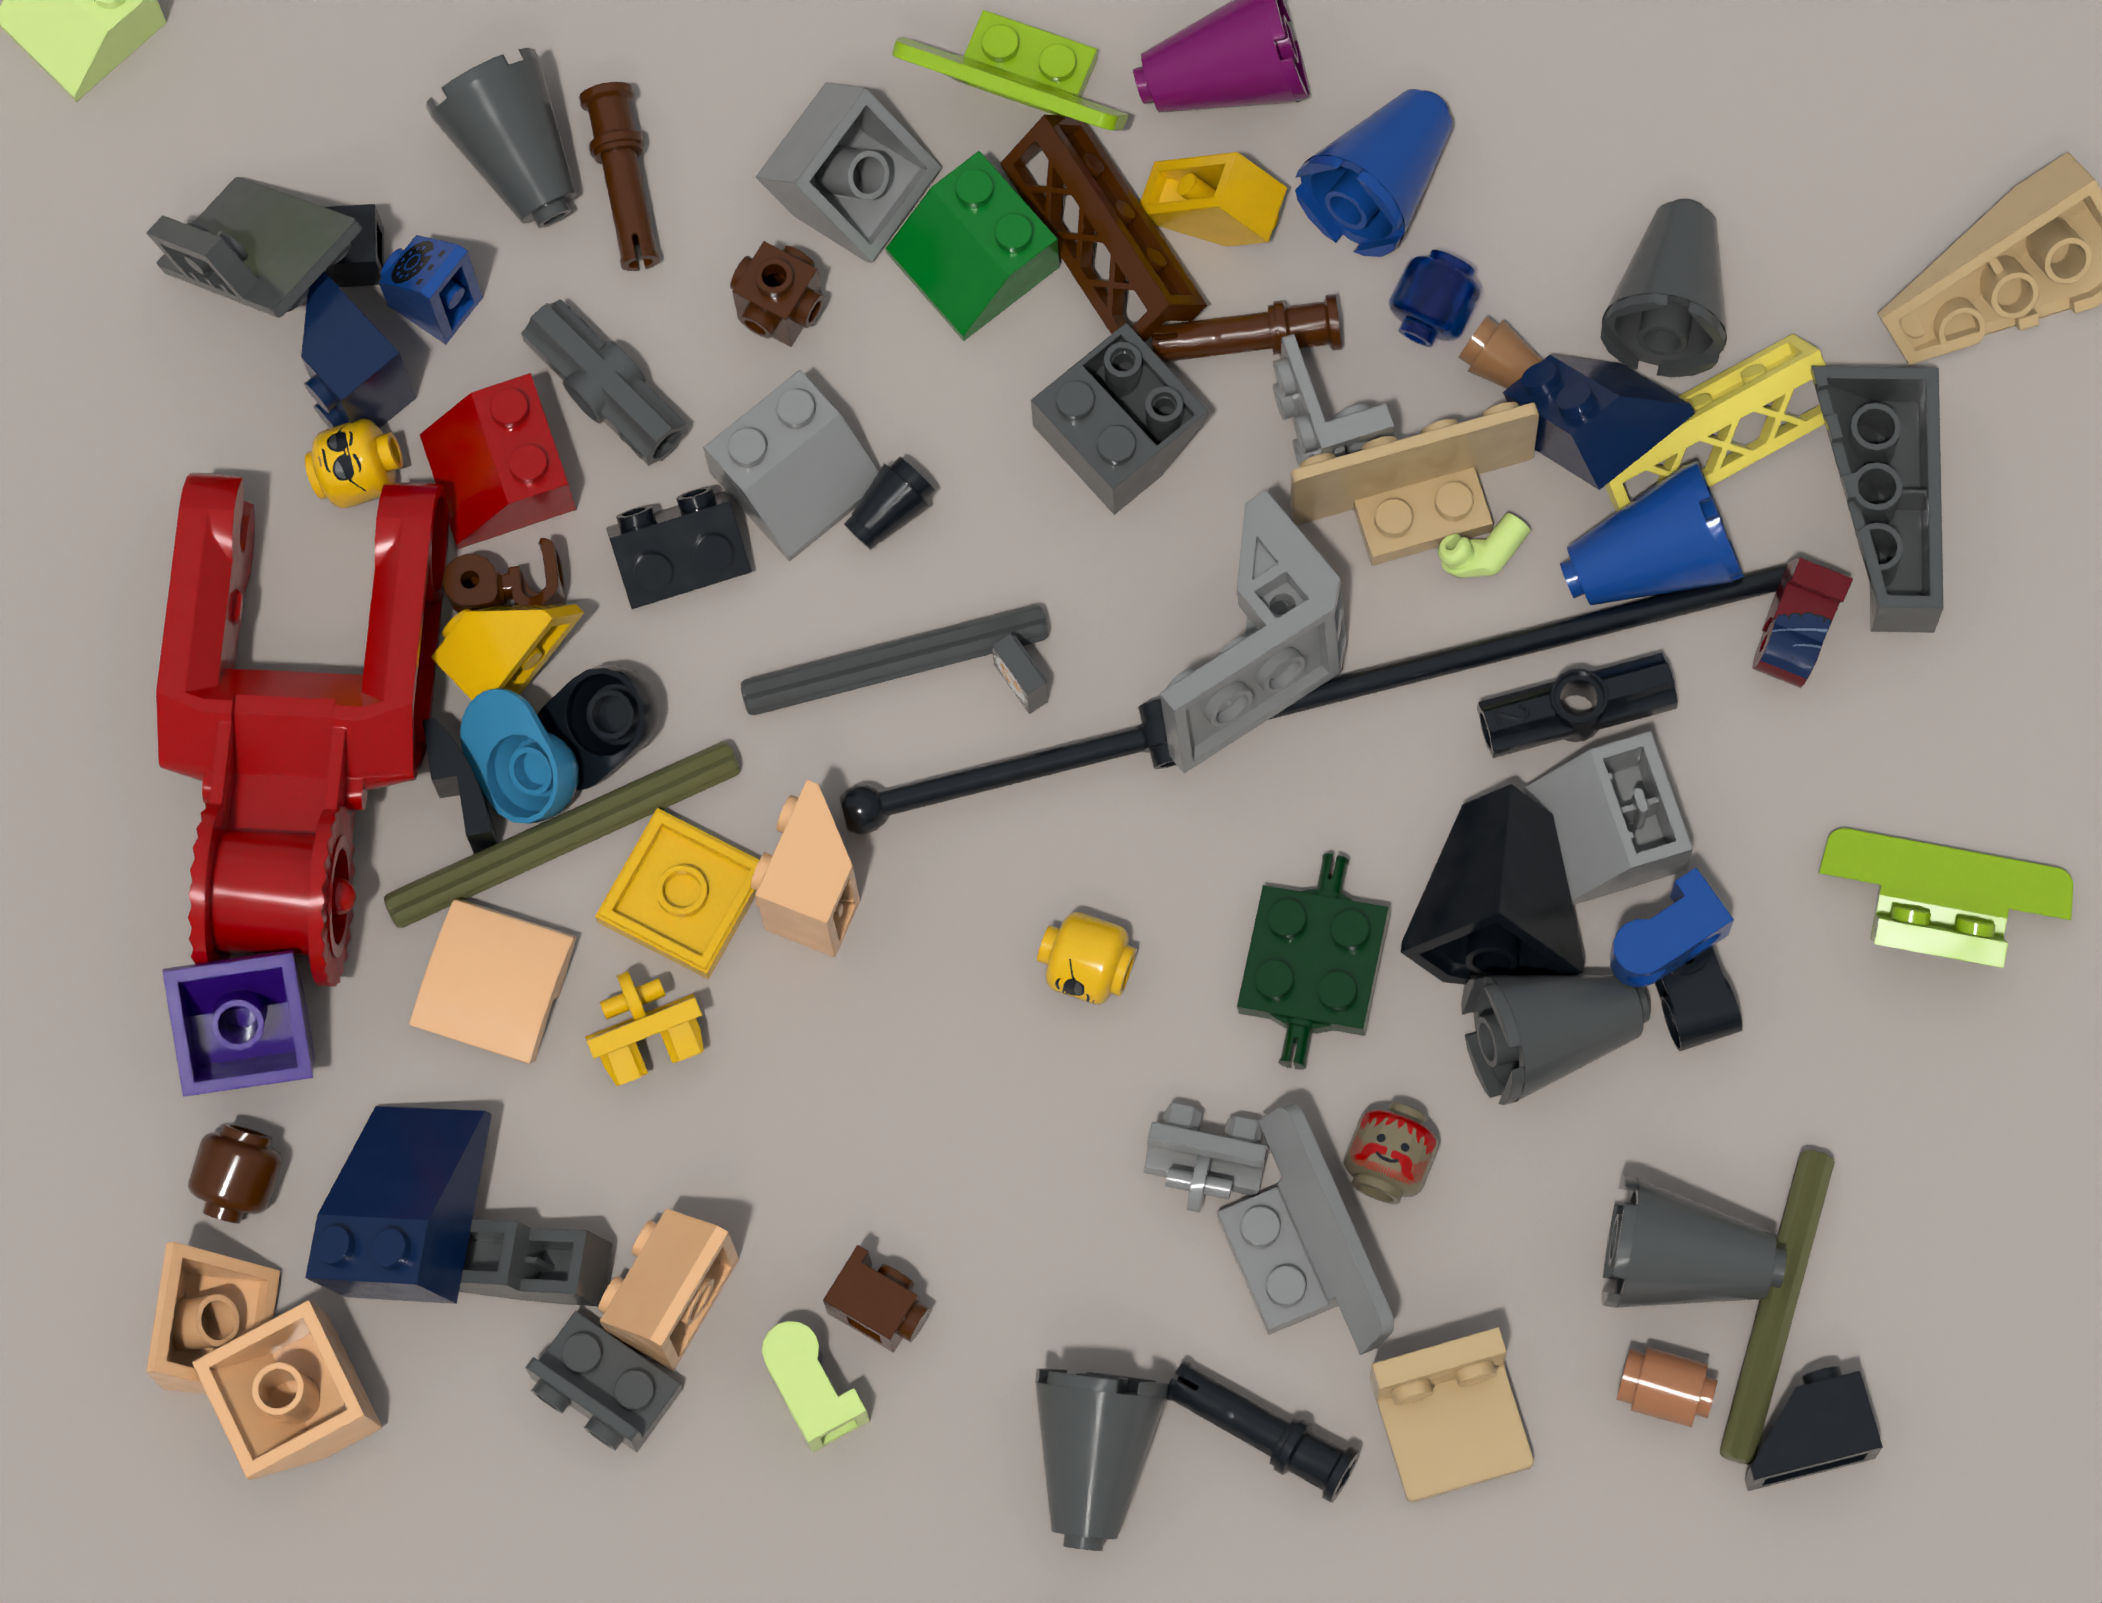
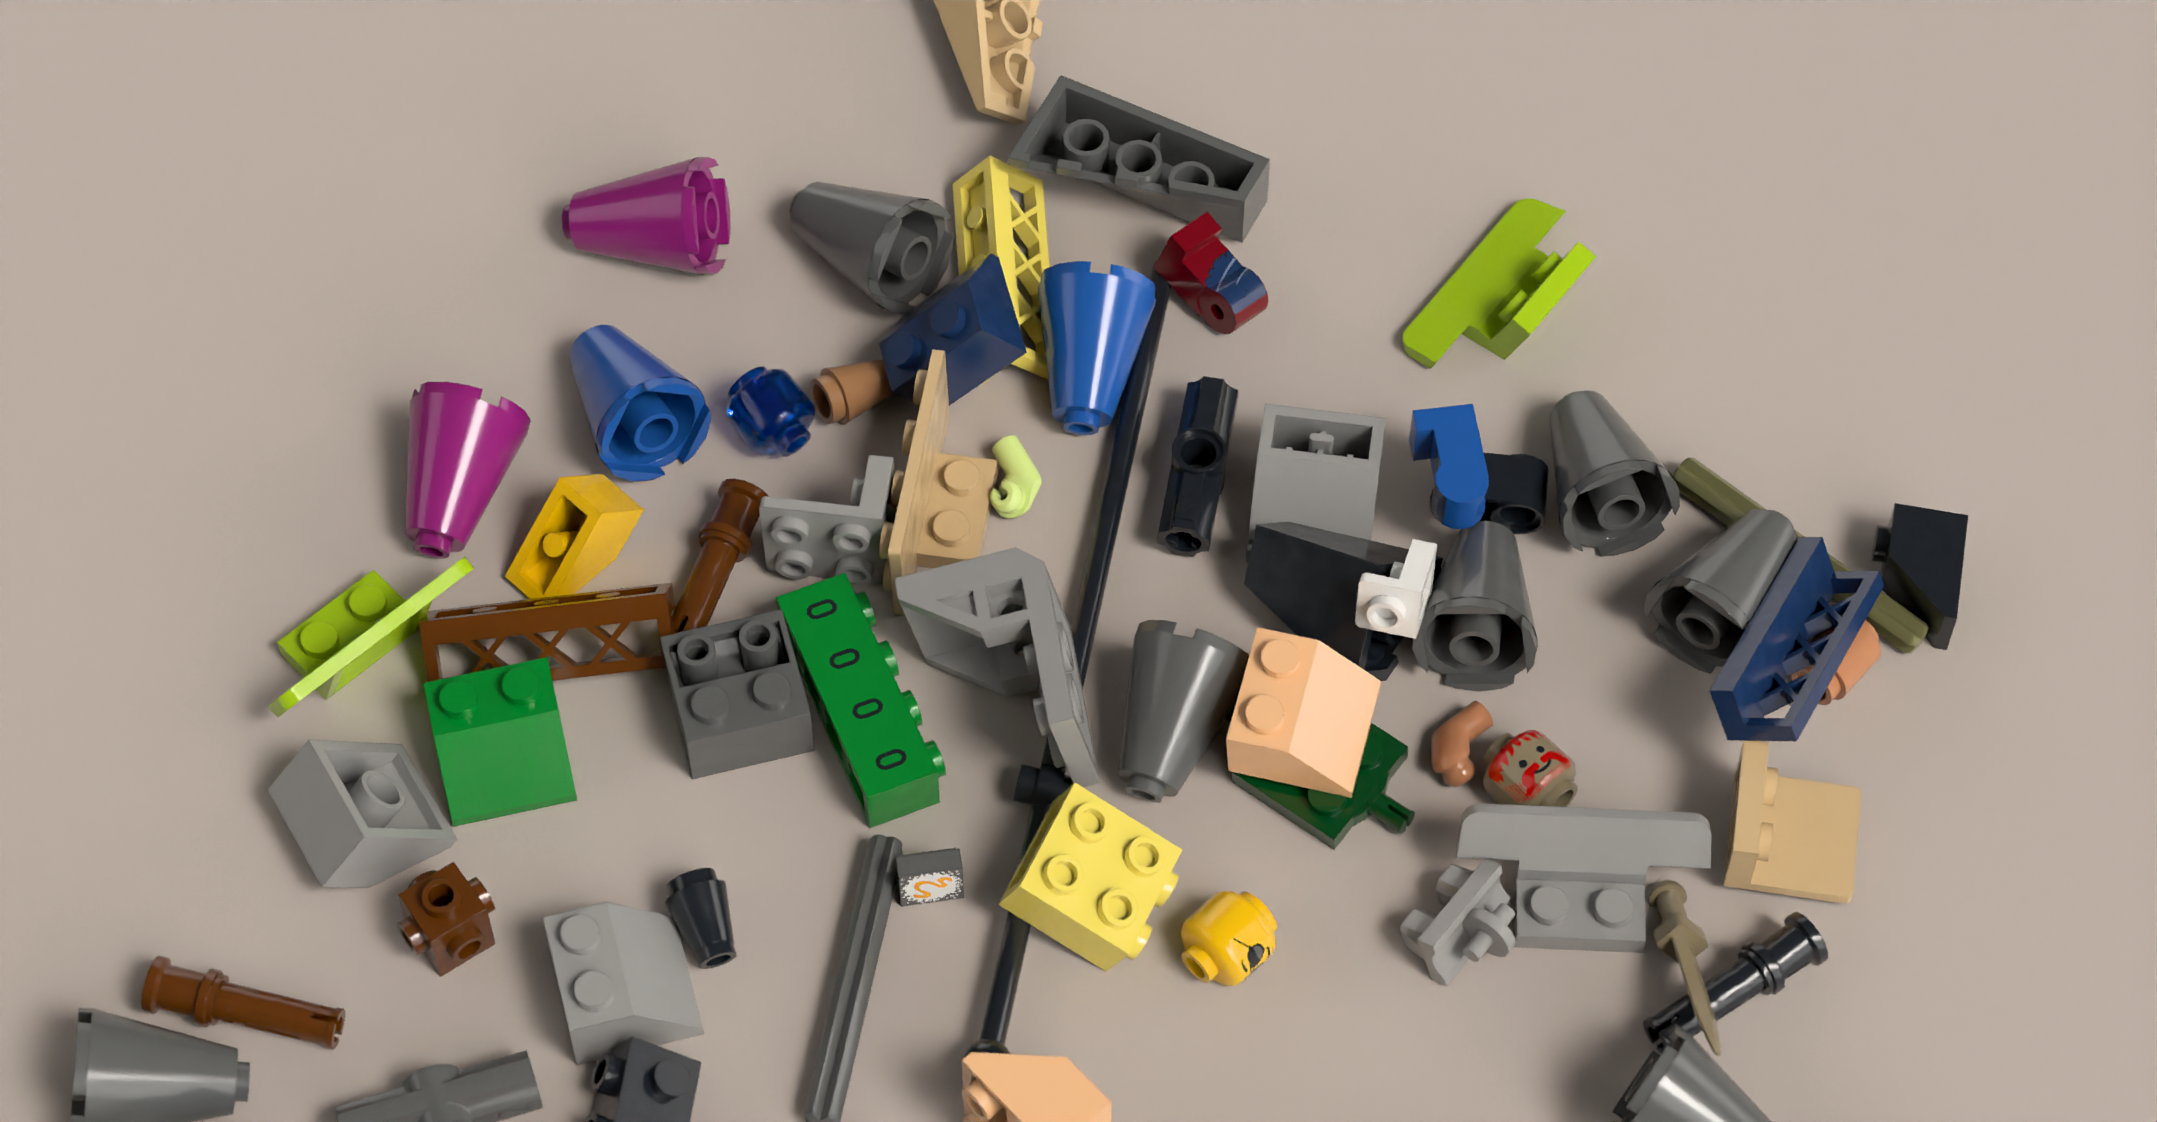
camera: 70 degrees left, 15 degrees down
(1077, 812) = (1092, 878): none -> light yellow brick
(1171, 525) = (860, 701): none -> green brick
(1284, 1362) = (1683, 942): none -> dark tan sword
(1293, 802) = (1174, 705): none -> dark grey cone
(1328, 916) = (1301, 714): none -> light nougat slope
(1398, 1068) = (1452, 743): none -> nougat arm
(1484, 953) = (1398, 601): none -> white bracket
(1593, 93) = (655, 217): none -> magenta cone
(1627, 1321) = (1777, 645): none -> dark blue fence
(1759, 1081) = (1606, 478): none -> dark grey cone

